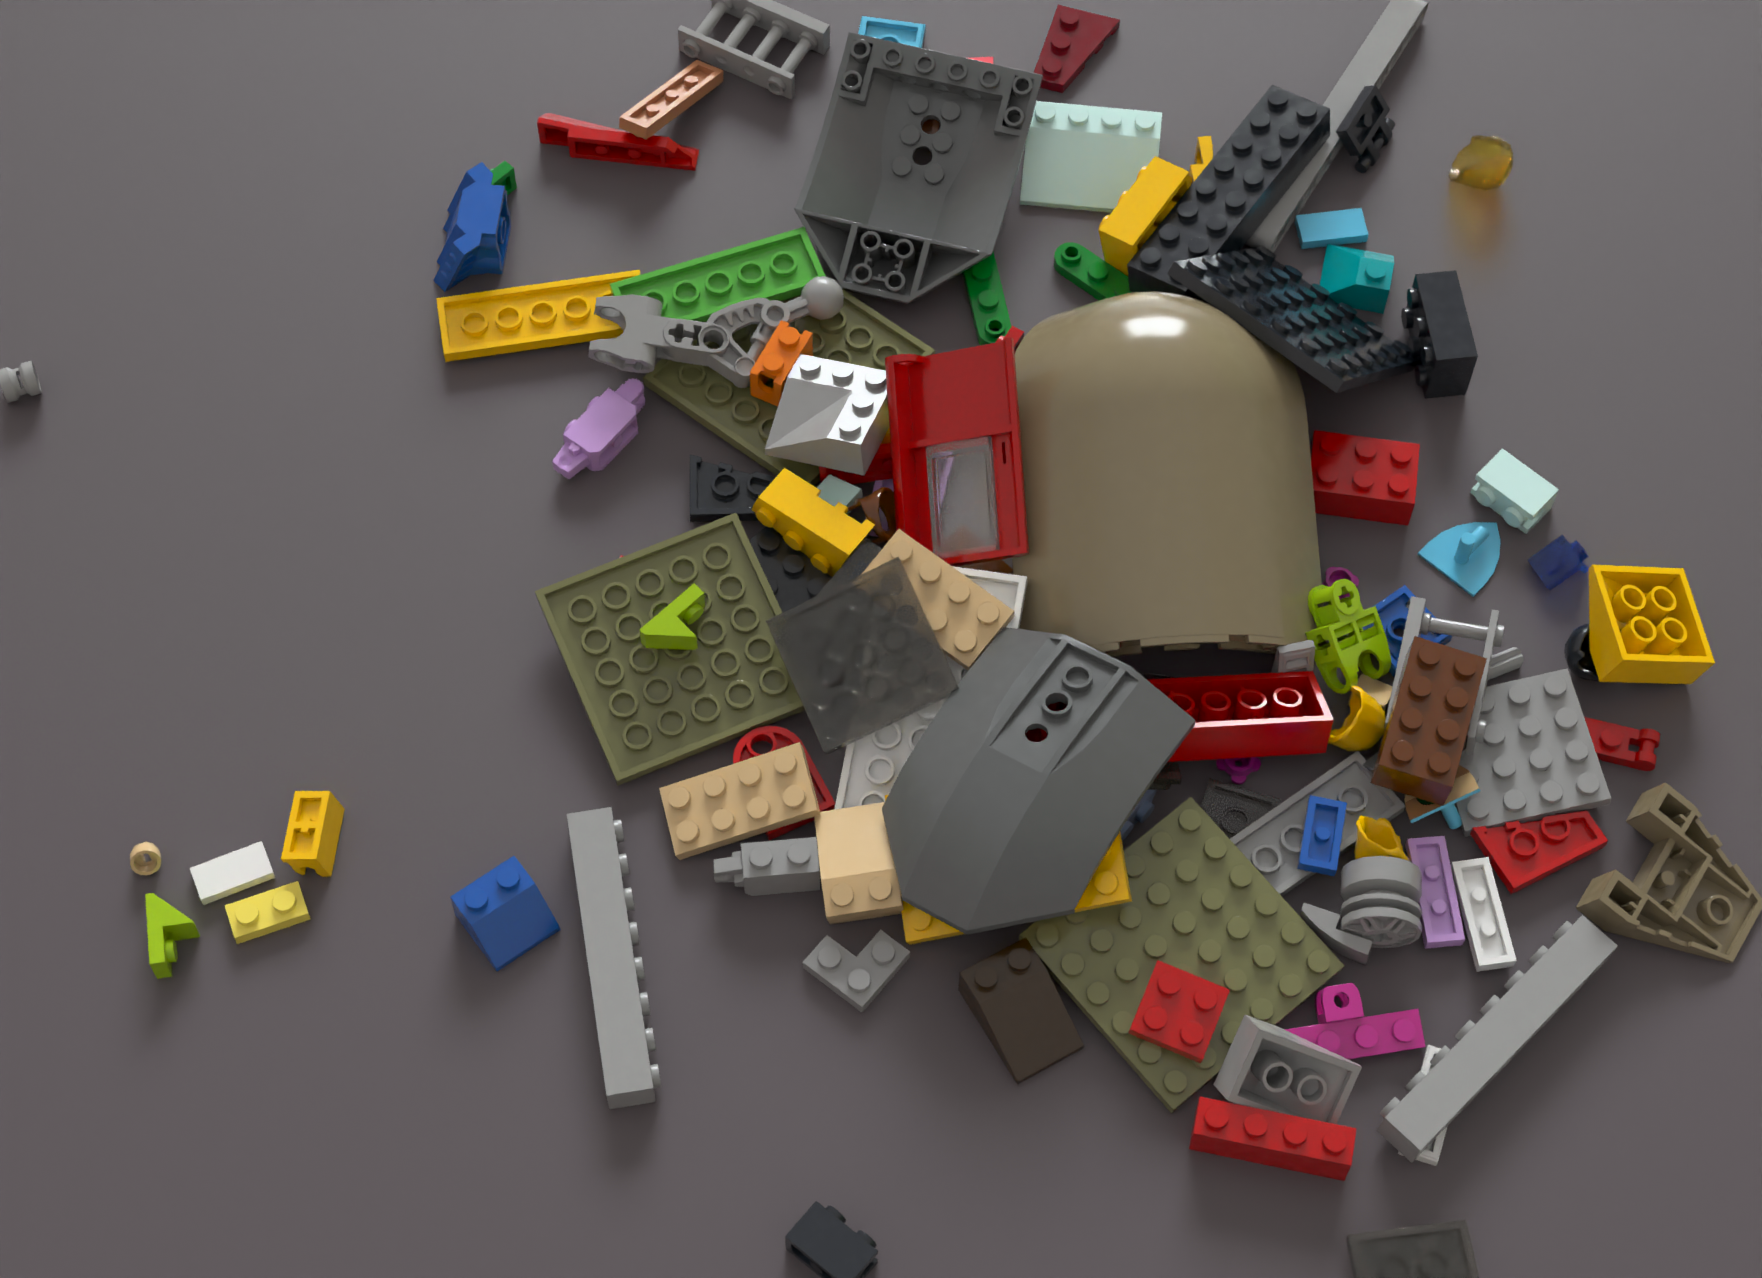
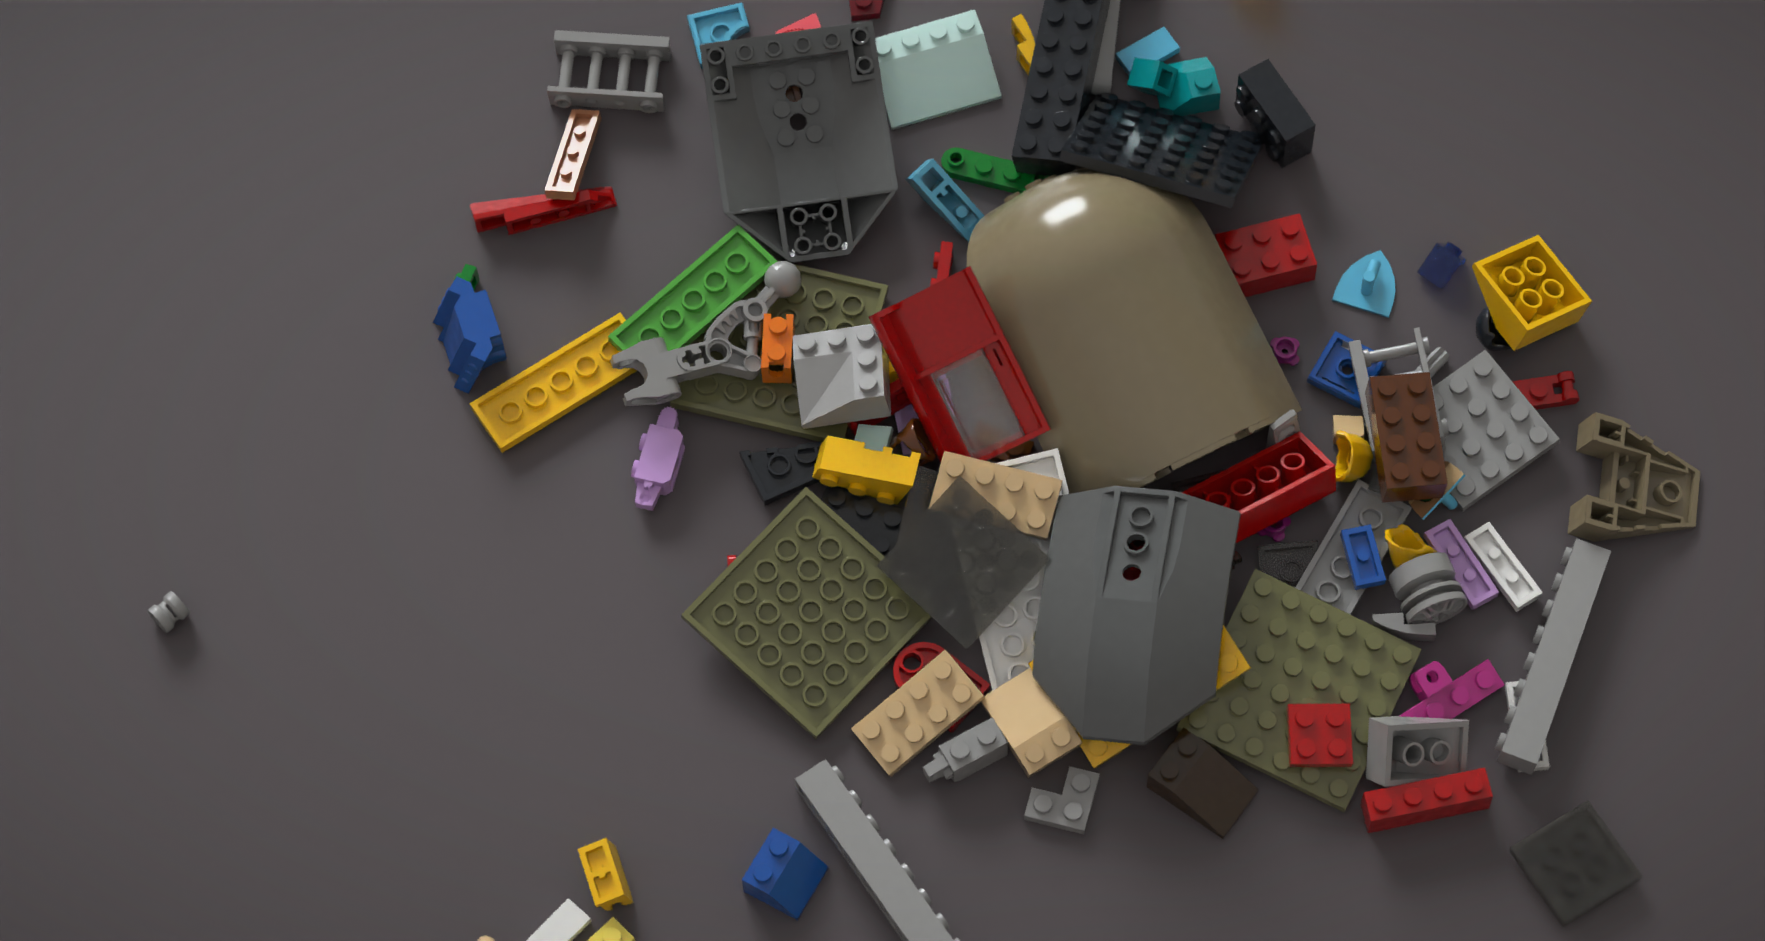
camera: 20 degrees left, 5 degrees up
(668, 627) = (802, 602): lime slope -> none
(987, 300) = (910, 229): green plate -> none
(1037, 279) = (945, 197): none -> medium azure slope
(1141, 211) = (1001, 105): yellow brick -> none
(1322, 249) = (1152, 77): none -> teal brick
(1353, 649) = (1308, 388): lime piece -> none
(1514, 491) = (1384, 220): light aqua brick -> none
(1538, 848) = (1520, 499): red wing -> none

